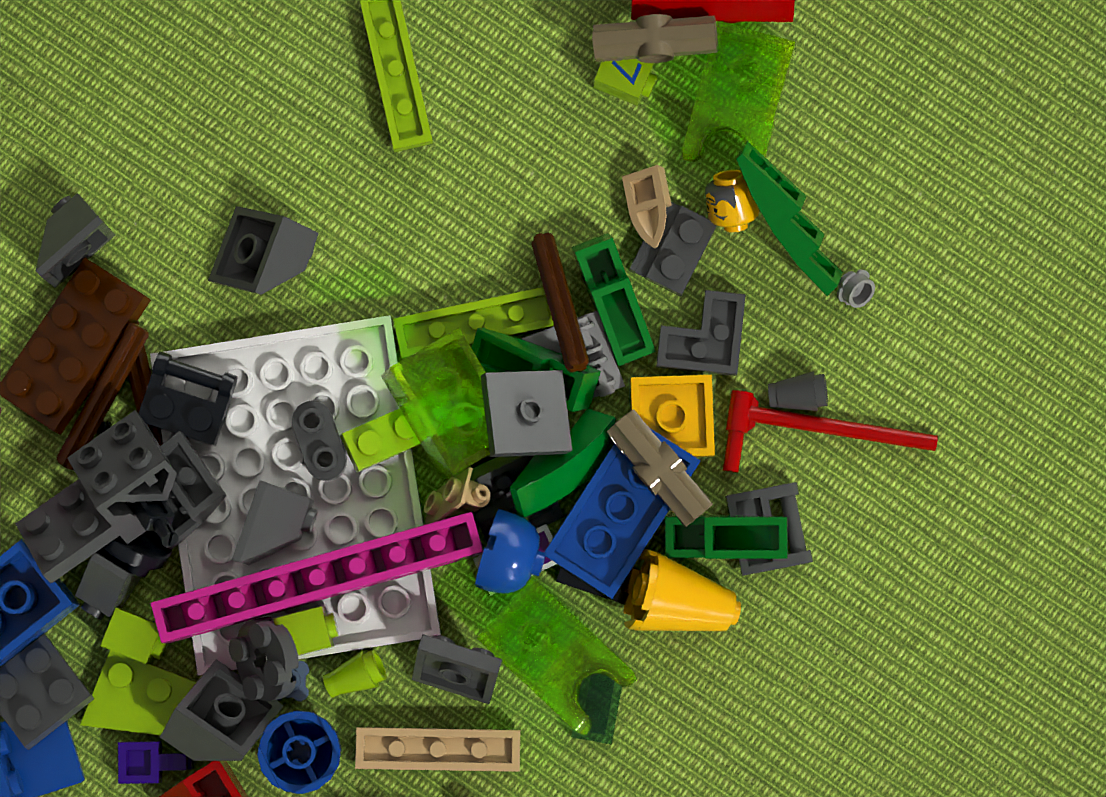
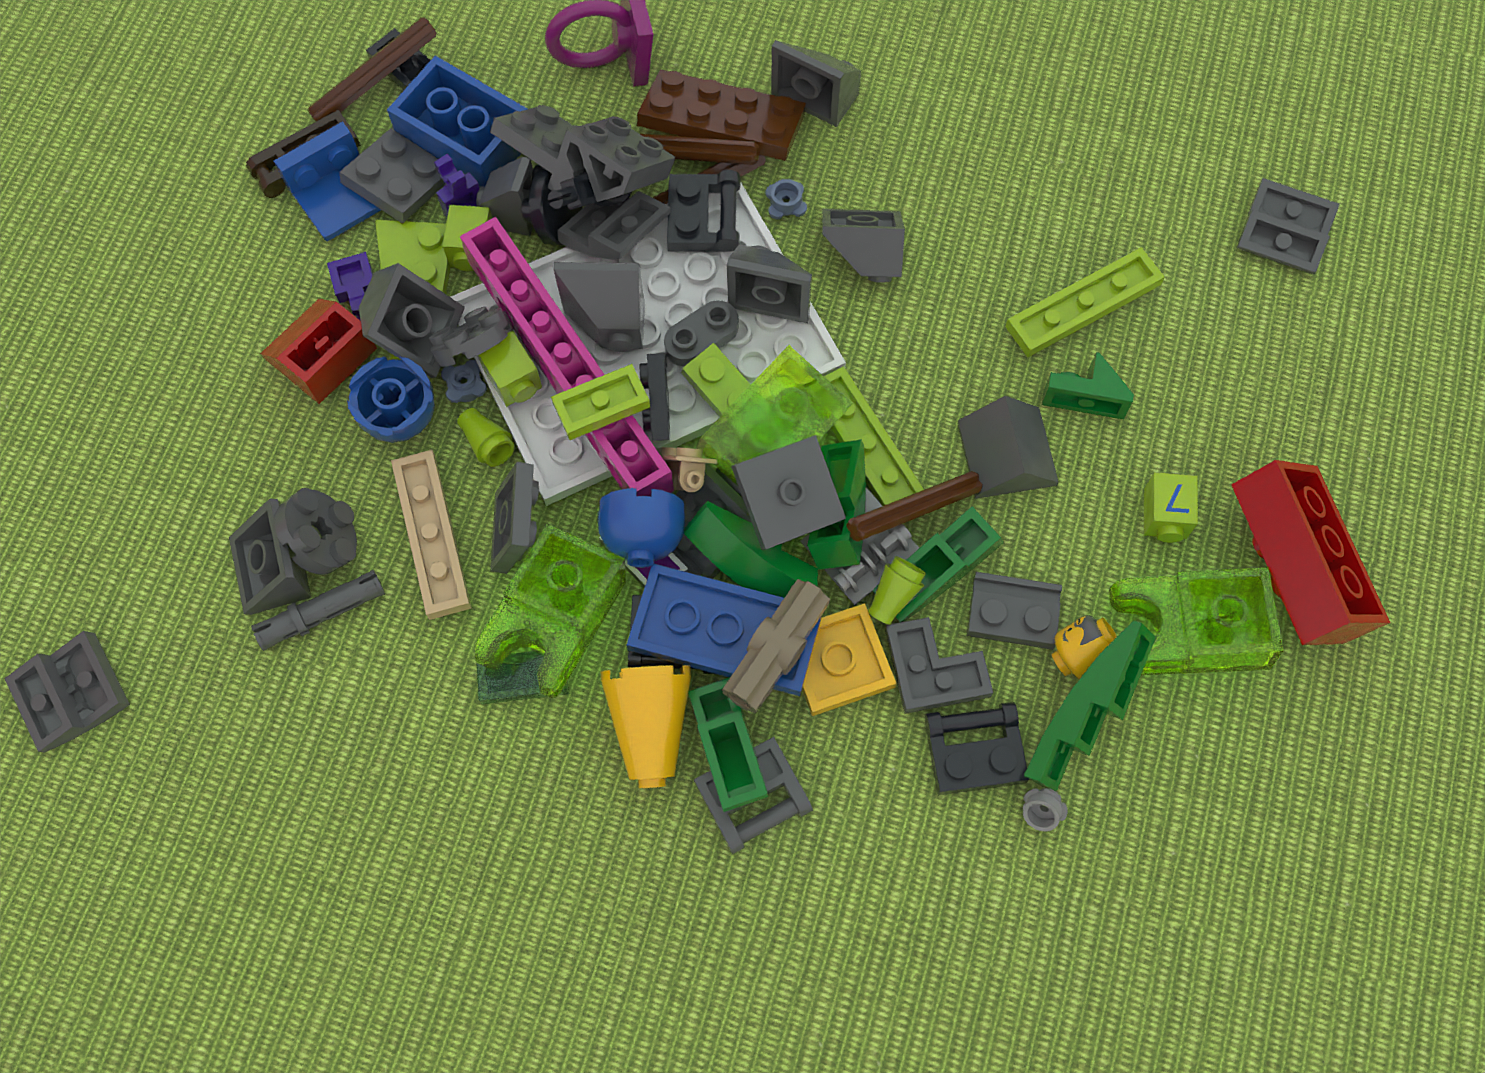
camera: 75 degrees right, 15 degrees down
(80, 635) = (458, 188): none -> dark purple plate
(182, 303) = (786, 190): none -> sand blue plate
(292, 362) = (768, 284): none -> dark grey slope
(368, 499) = (654, 377): none -> black wing
(389, 555) = (600, 402): none -> lime plate
(494, 92) = (1098, 394): none -> green slope
(519, 196) = (1007, 448): none -> dark grey slope
(630, 345) = (896, 588): none -> lime cone
(647, 202) = (1053, 565): tan plate -> none
(655, 38) = (1223, 509): dark tan piece -> none
(745, 413) = (869, 734): red bar -> none
(798, 326) = (977, 763): none -> black plate
(799, 392) = (910, 784): dark grey cone -> none

